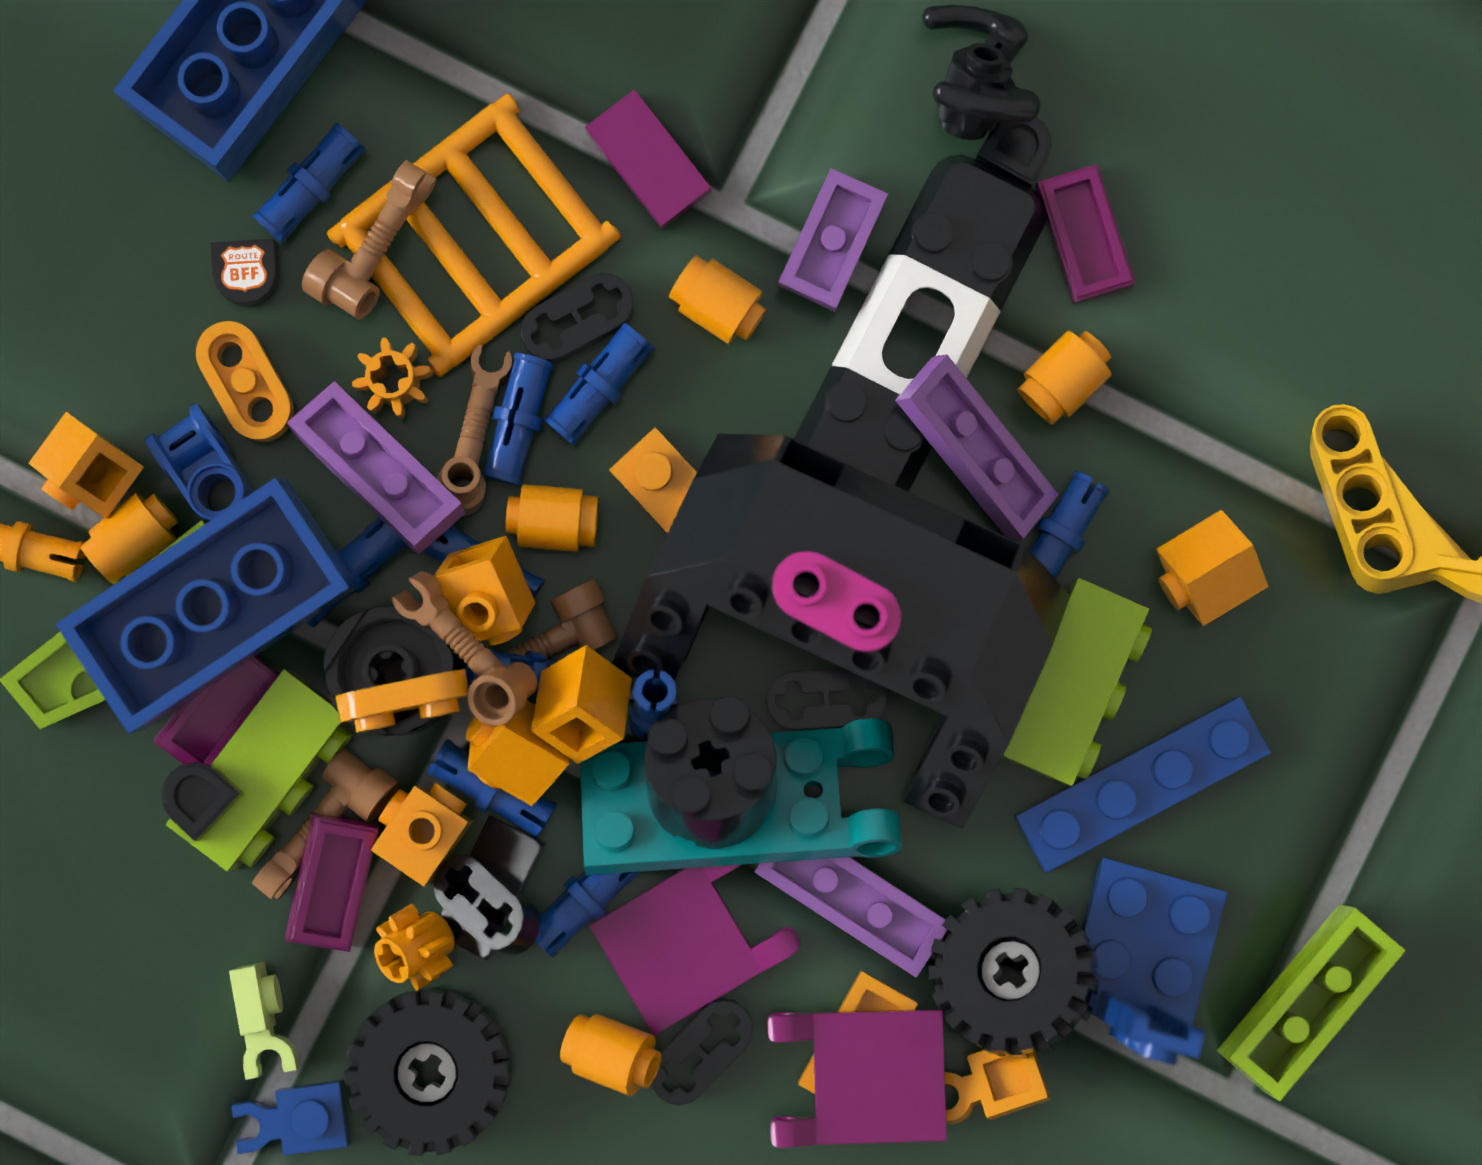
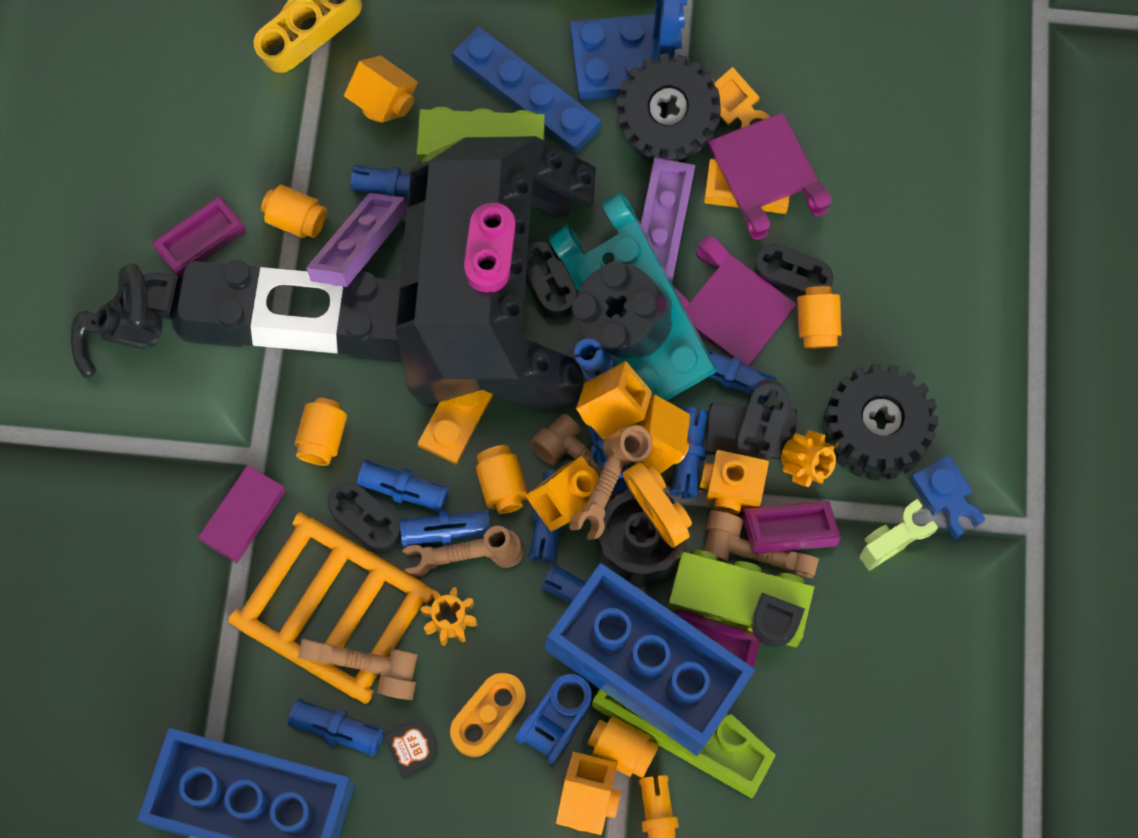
camera: 110 degrees left, 15 degrees down
(376, 468) = (512, 600): medium lavender plate -> none
(832, 240) = (255, 378): medium lavender plate -> none

